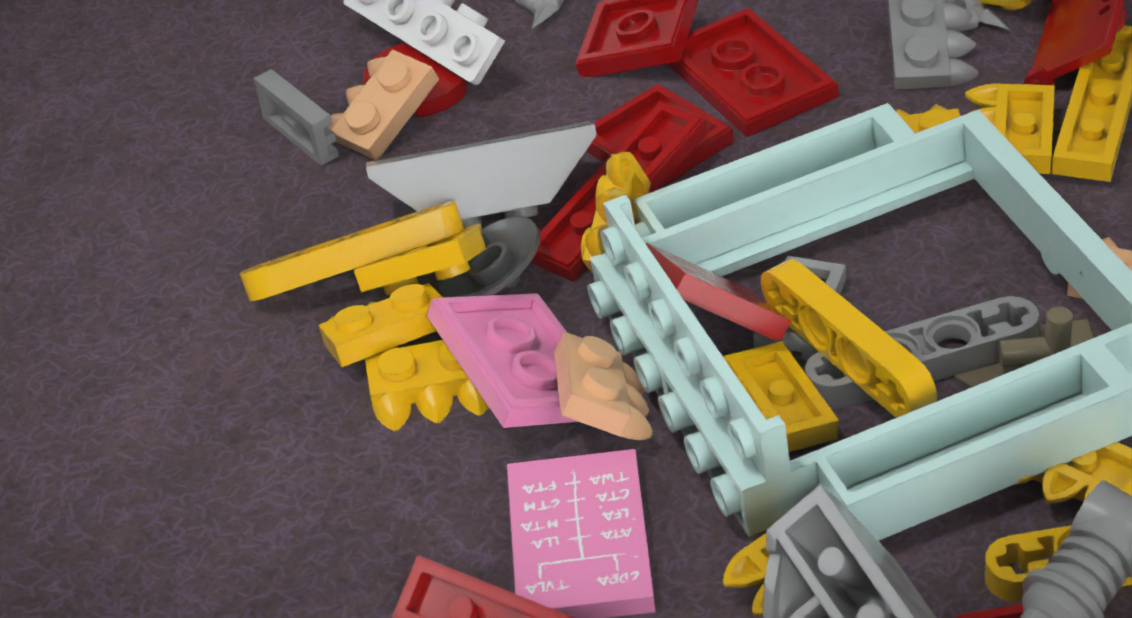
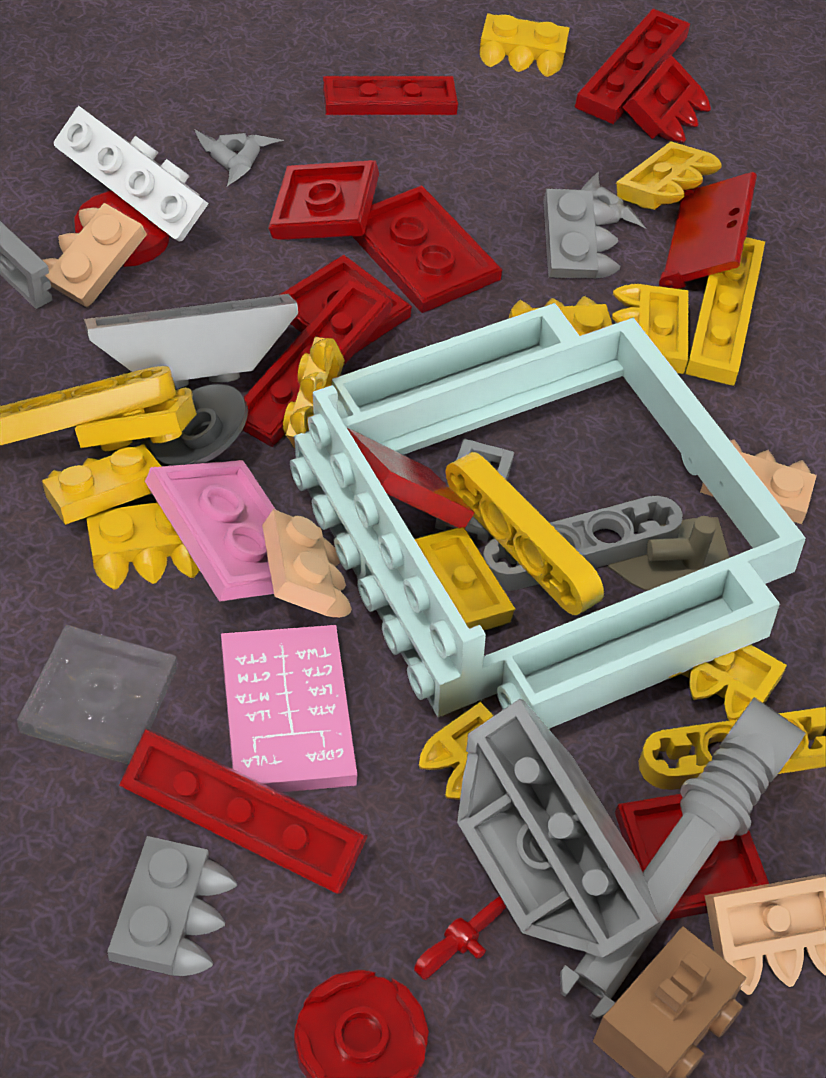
camera: 15 degrees left, 10 degrees up
(370, 528) = (97, 694): none -> clear plate

